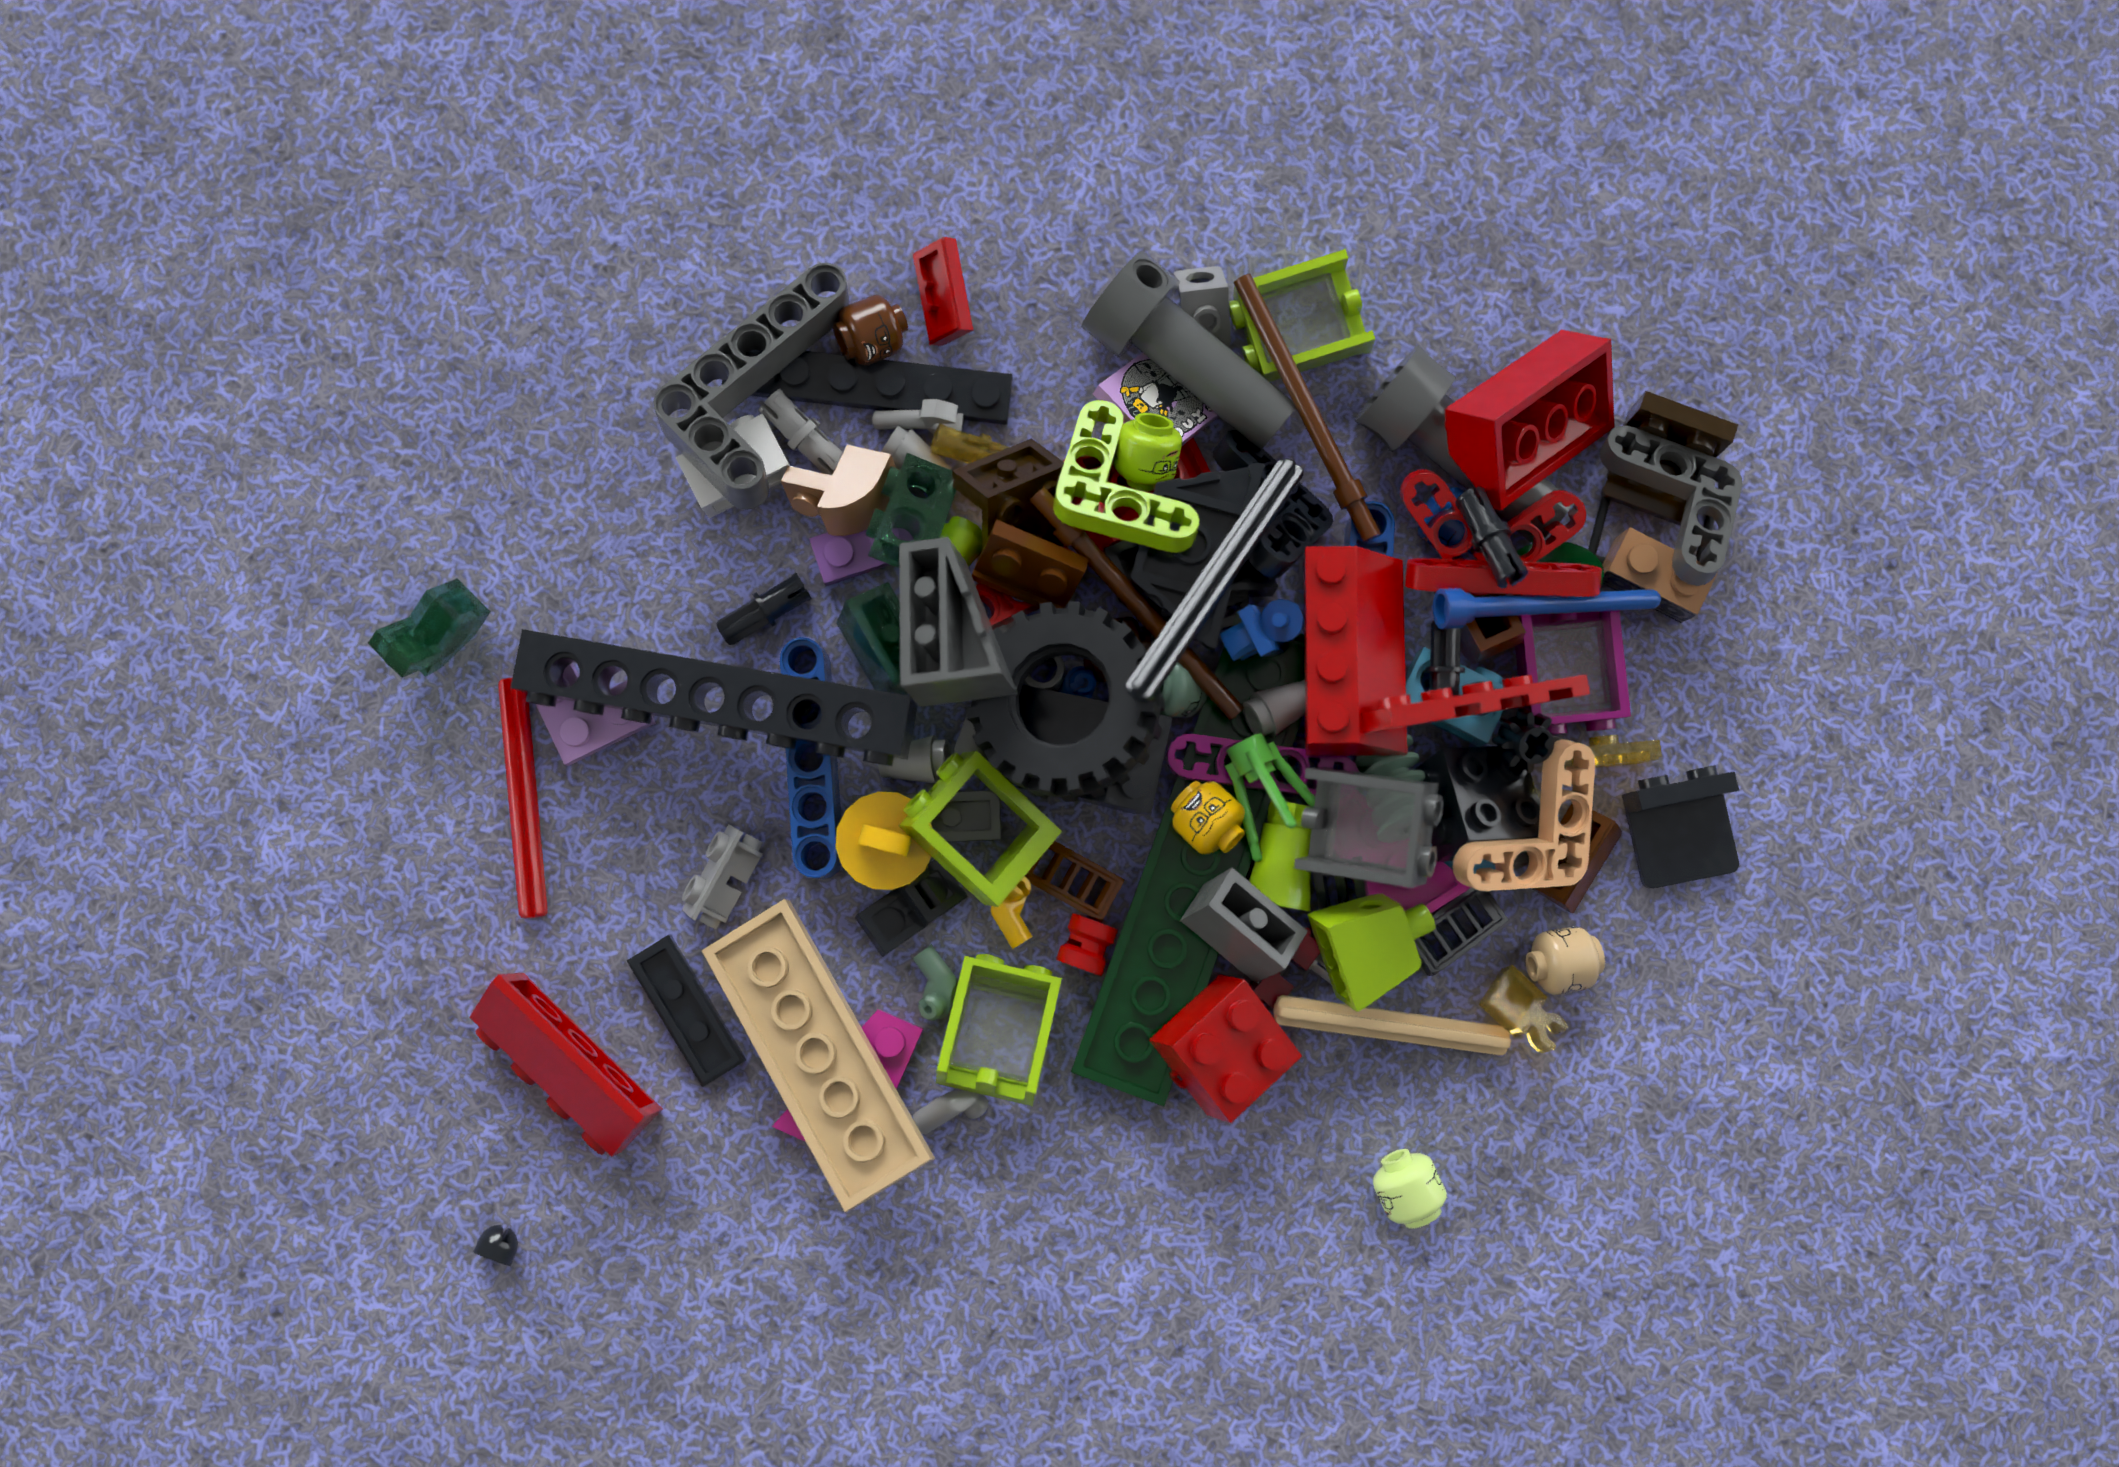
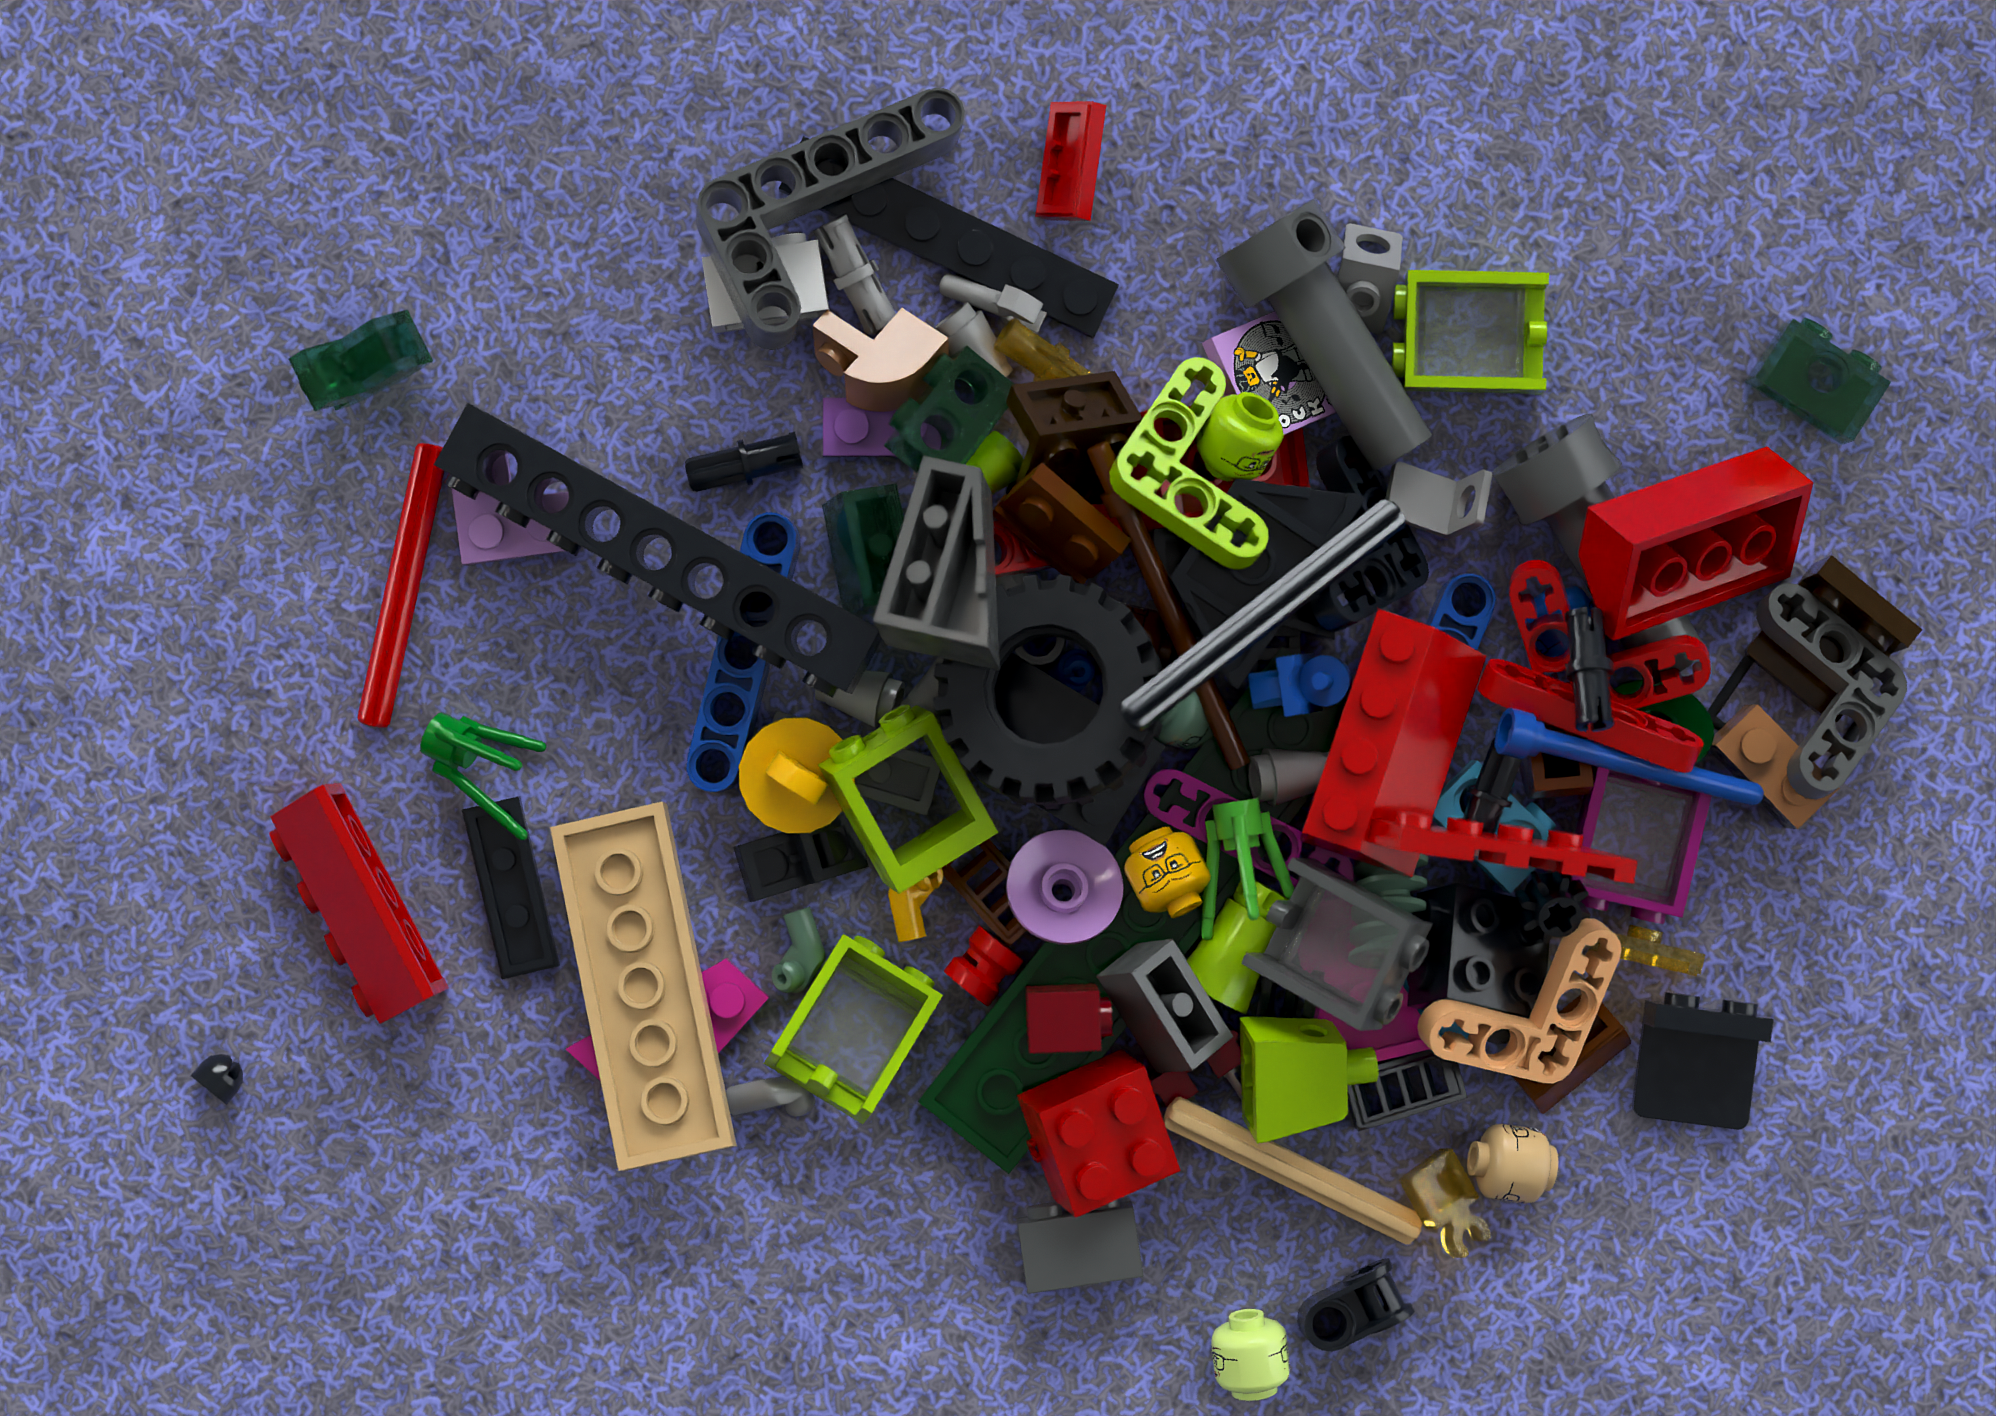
camera: 20 degrees right, 5 degrees up
(607, 908) = (459, 743): none -> green plant
(726, 859) = (579, 763): light grey hinge -> none
(870, 330) = (972, 180): reddish brown head -> none
(1135, 837) = (1069, 860): none -> lavender dish
(1168, 961) = (1066, 1018): none -> dark red brick
(1240, 1150) = (1080, 1250): none -> dark grey brick
(1307, 457) = (1438, 502): none -> light grey bracket
(1349, 492) = (1453, 558): reddish brown bar -> none
(1488, 1116) = (1358, 1306): none -> black piece
(1557, 276) = (1784, 379): none -> clear green brick

